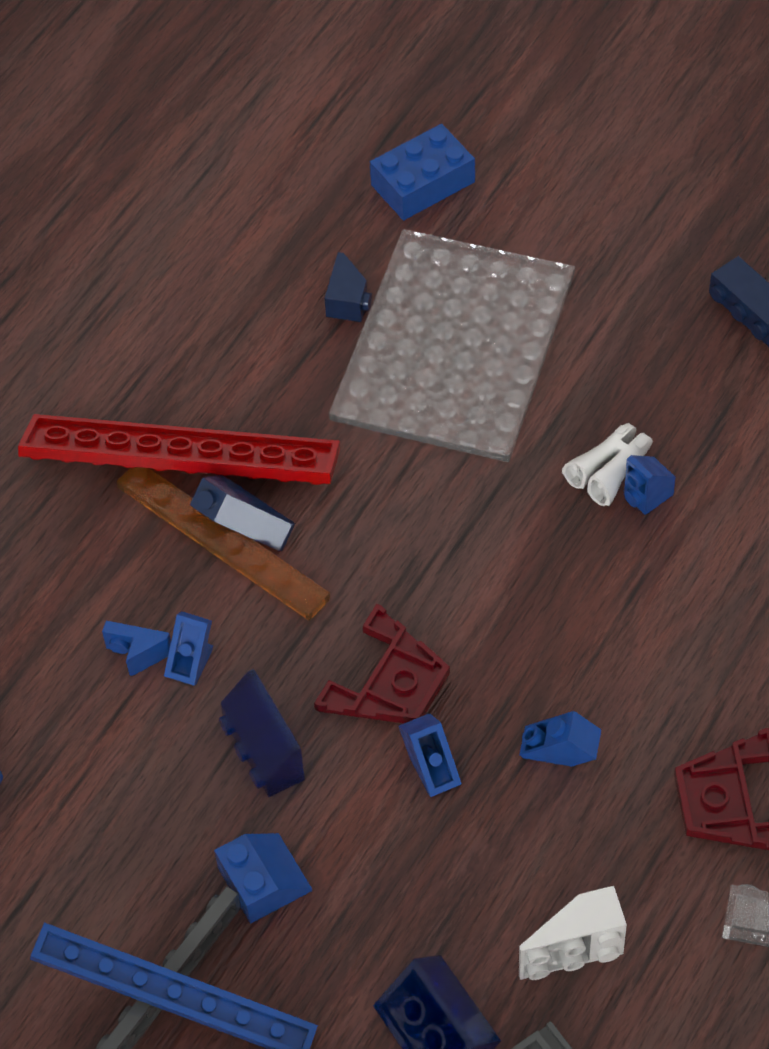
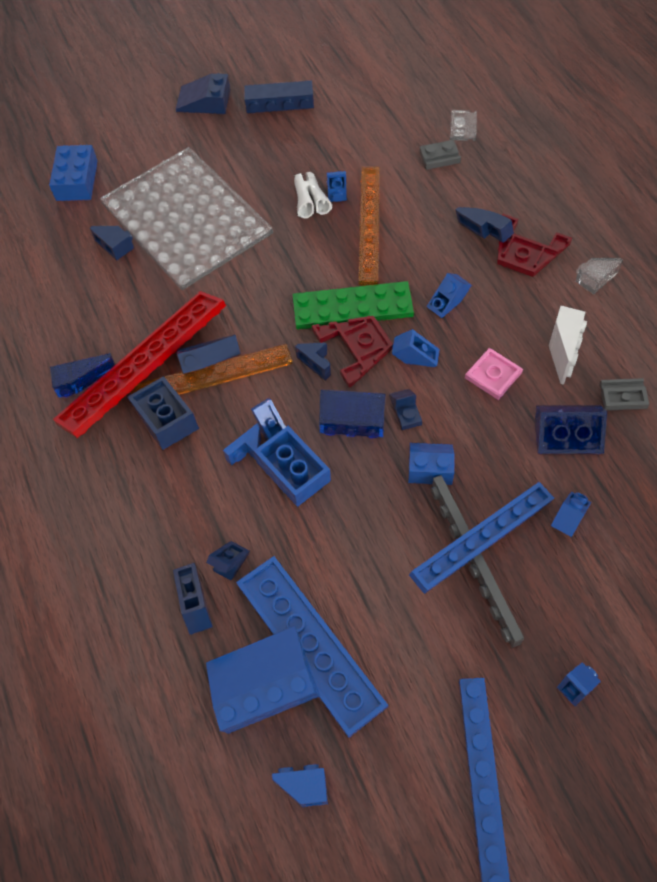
camera: 55 degrees left, 5 degrees up
(114, 397) = (78, 375): none -> clear blue slope
(118, 522) = (163, 412): none -> dark blue slope
(138, 713) = (292, 465): none -> blue brick
(328, 636) = (314, 357): none -> dark blue slope
(331, 795) = (405, 408): none -> dark blue slope
(458, 633) = (339, 305): none -> green plate
(469, 876) = (493, 373): none -> bright pink tile
(613, 568) = (369, 226): none -> clear orange plate
(691, 223) = (205, 95): none -> dark blue slope
(722, 714) = (485, 222): none -> dark blue slope

